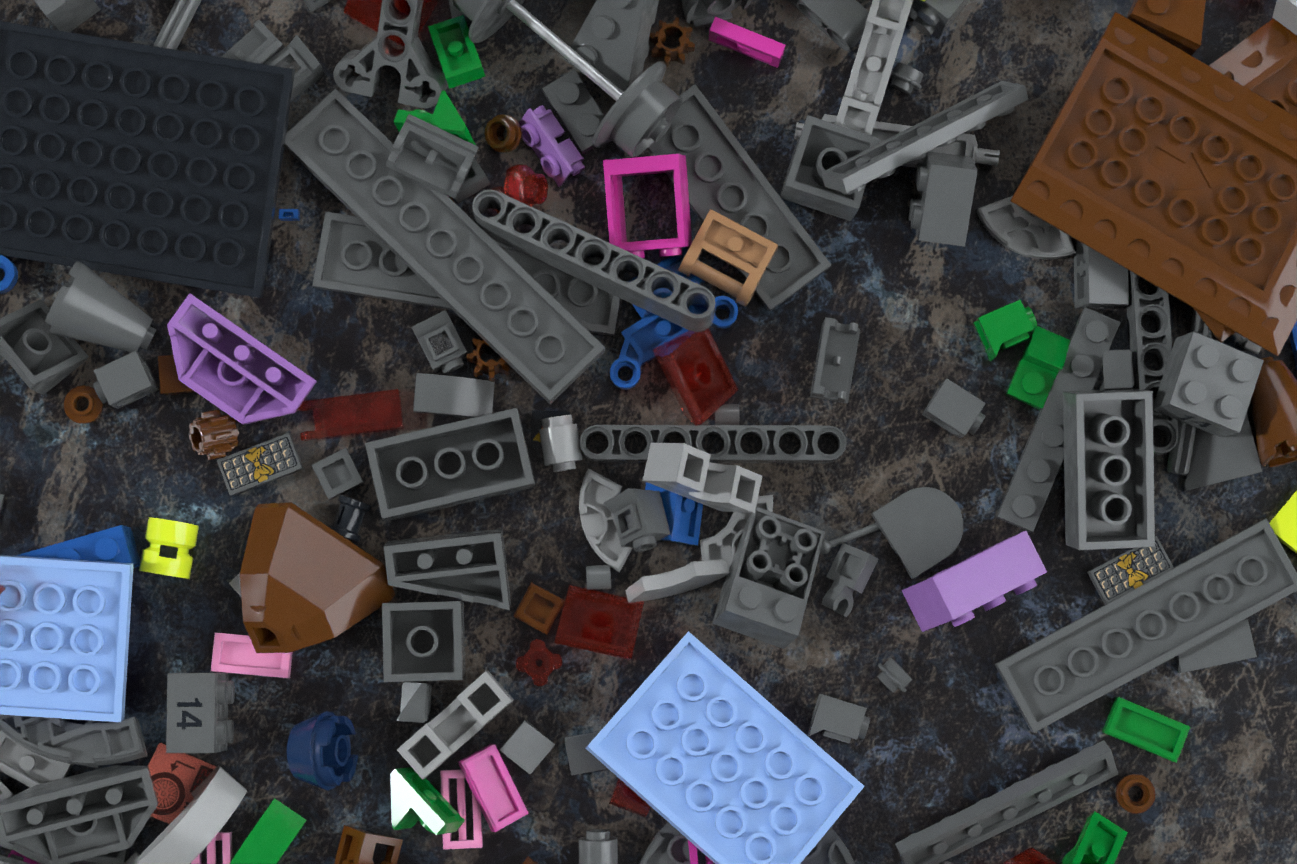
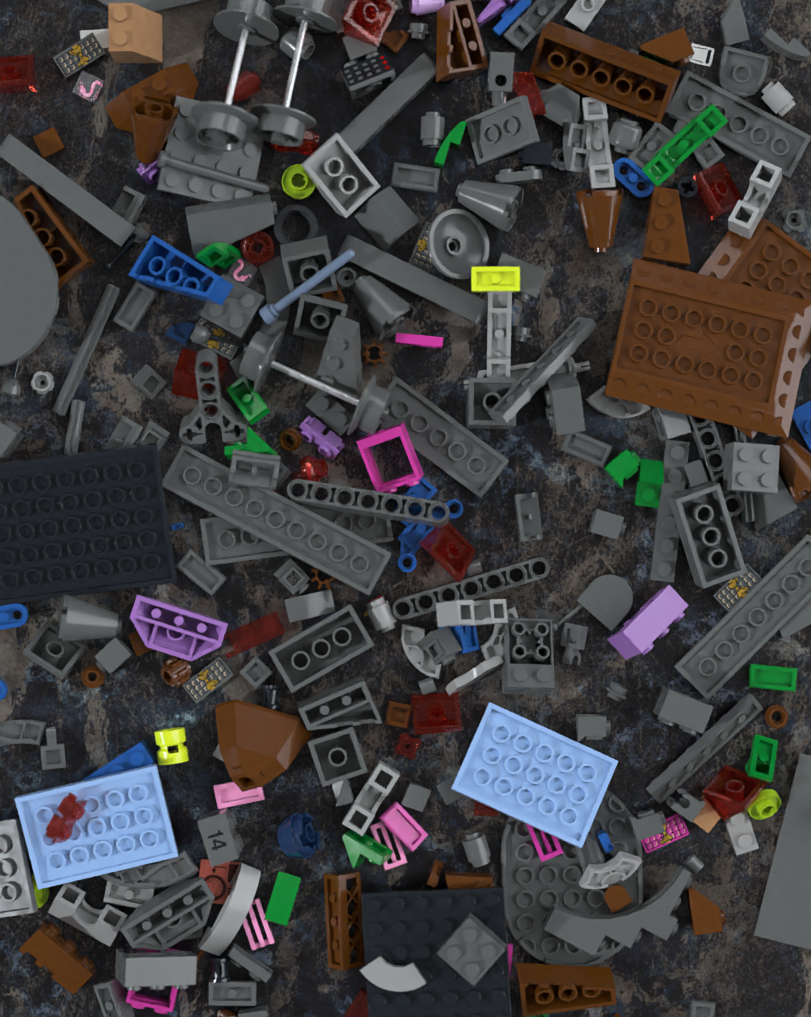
camera: 20 degrees left, 5 degrees up
(305, 302) = (204, 576): none -> dark grey tile
(733, 245) = (448, 468): medium nougat plate -> none
(956, 283) = (586, 448): none -> dark grey tile
(990, 734) = (682, 709): none -> dark grey brick

